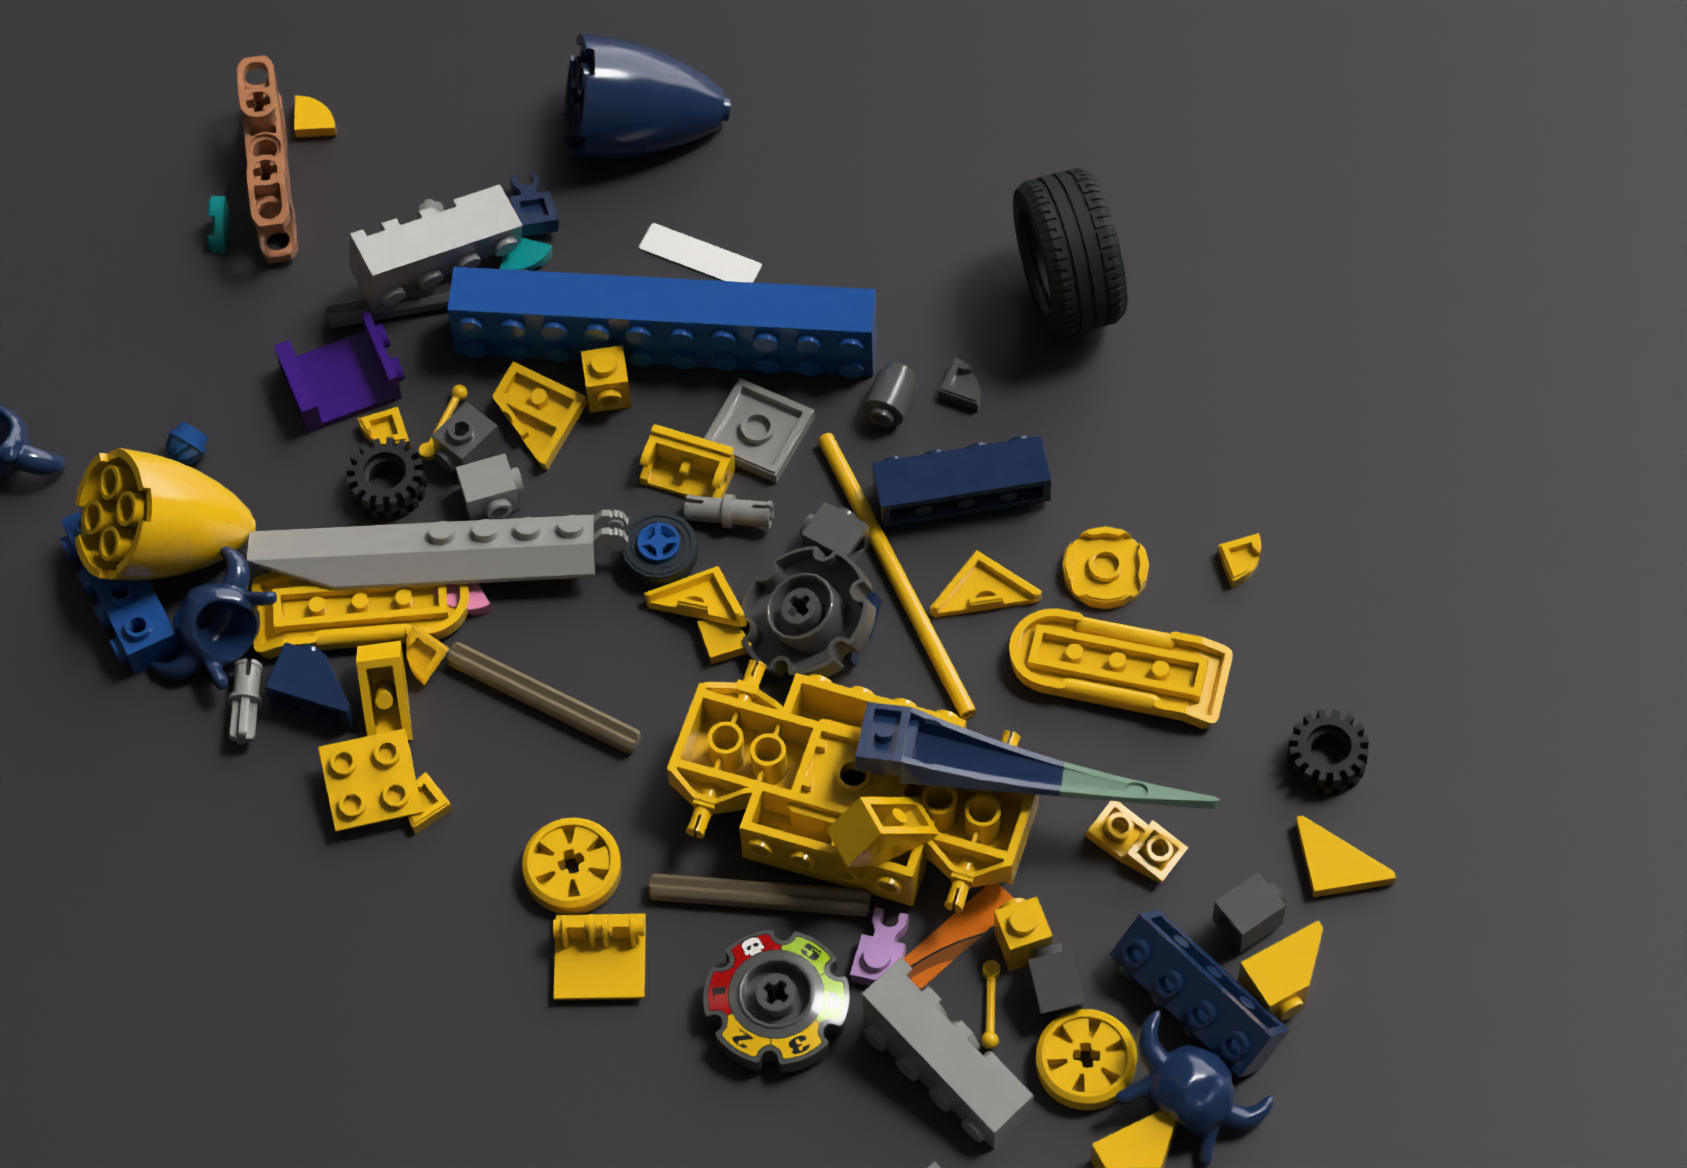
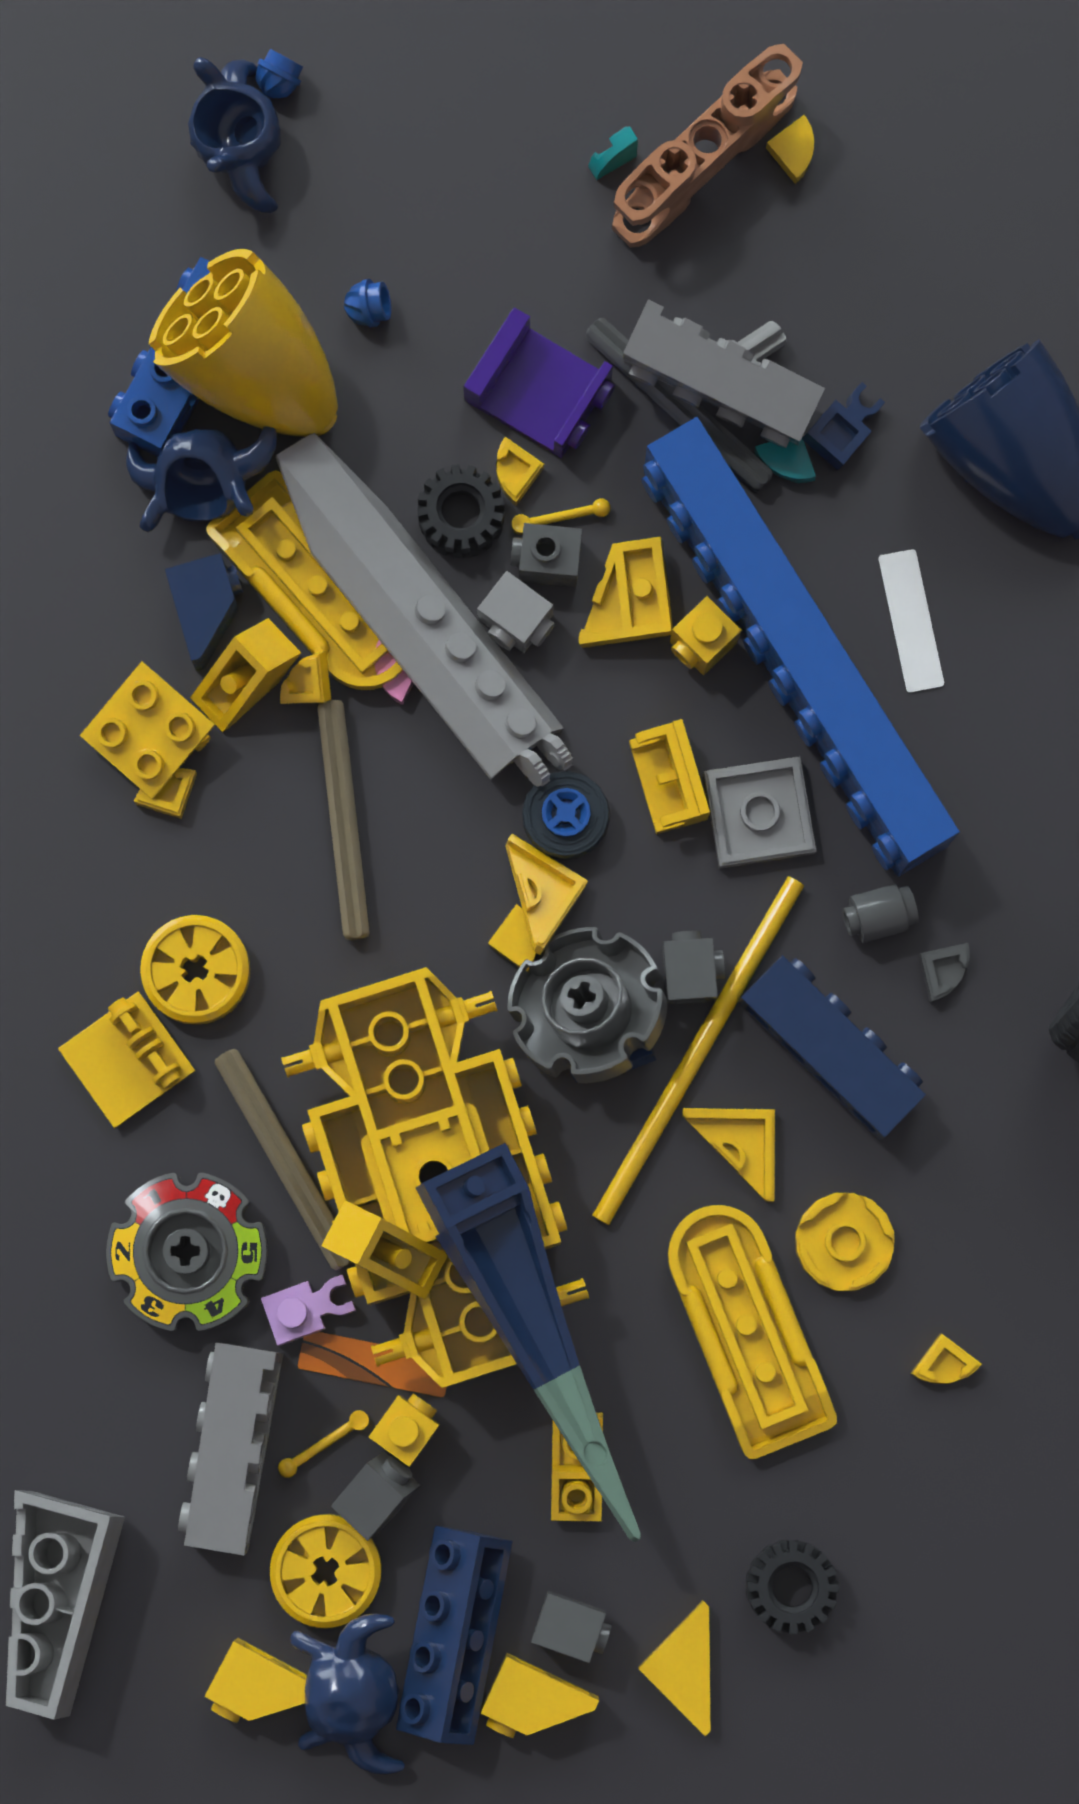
camera: 50 degrees right, 20 degrees up
(245, 701) = (149, 558): light grey axle -> none
(728, 511) = (651, 849): light grey pin -> none

